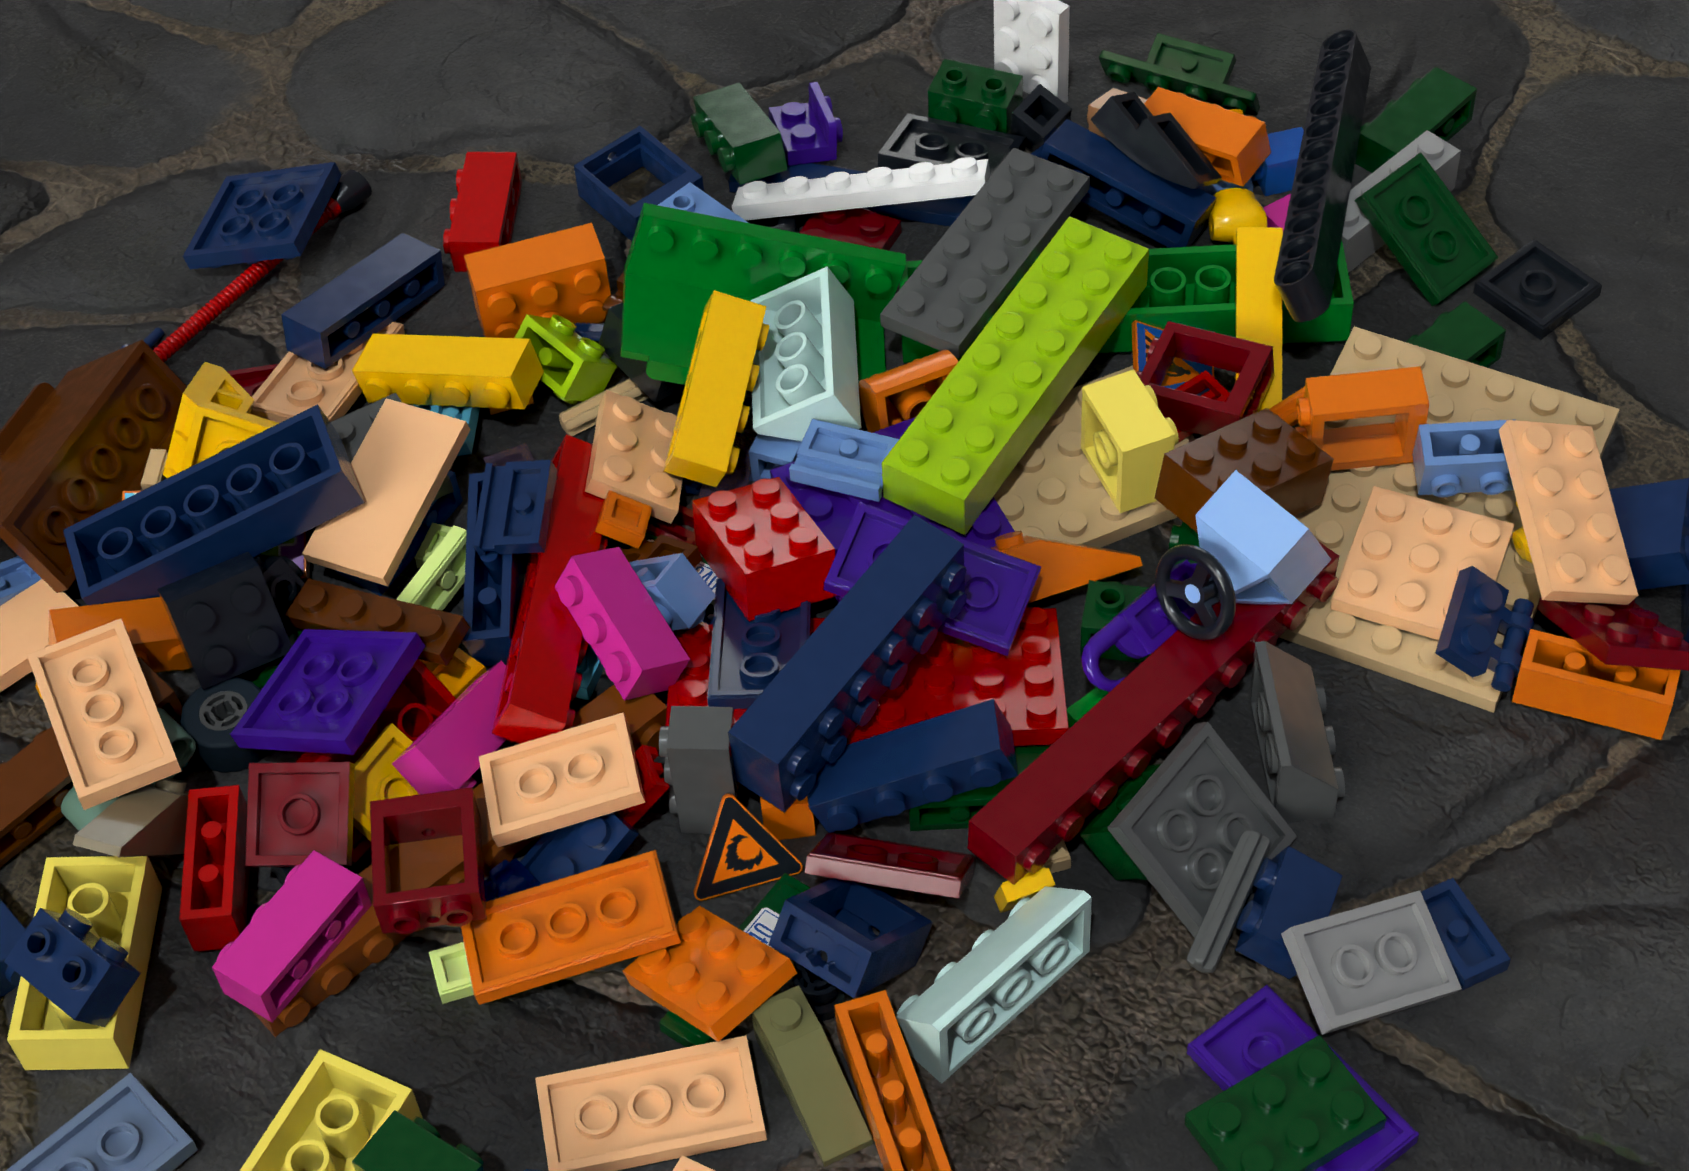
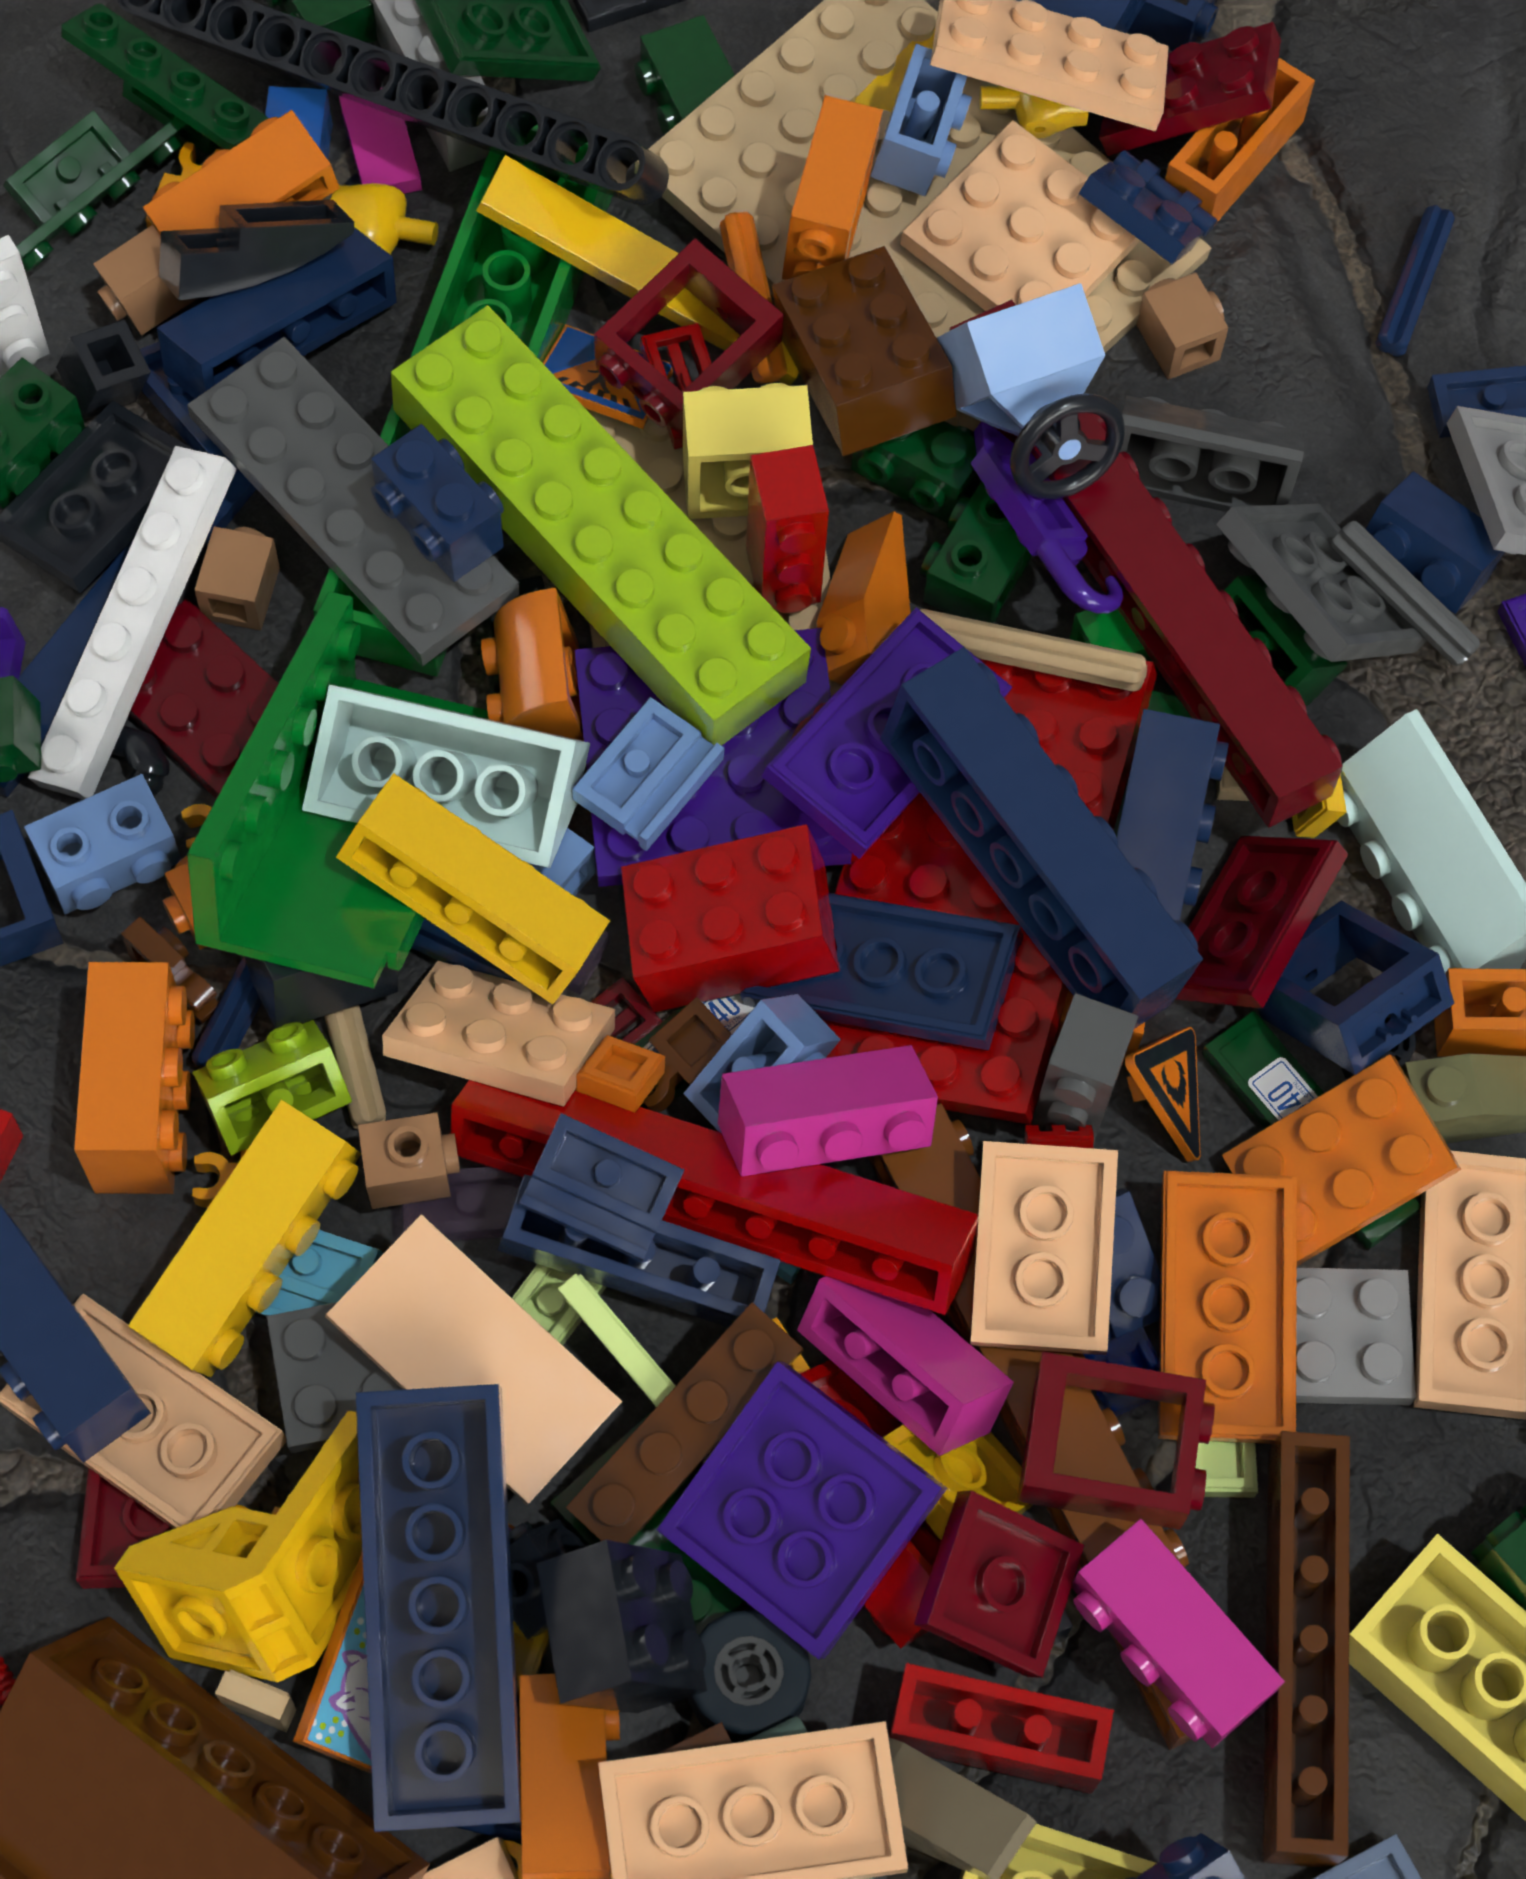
camera: 80 degrees left, 15 degrees up
(276, 1048) = (1309, 1650): none -> reddish brown brick
(529, 437) = (407, 1160): none -> medium nougat brick
(581, 1021) = (1354, 1337): none -> light grey plate
(921, 230) = (237, 577): none -> medium nougat brick
(980, 269) = (438, 502): none -> dark blue brick
(1045, 652) = (1045, 652): none -> tan axle
(1060, 467) = (787, 527): none -> red brick
(1274, 70) = (162, 80): none -> dark green bracket
(1409, 699) = (1182, 324): none -> medium nougat brick
(1549, 853) = (1415, 280): none -> dark blue axle

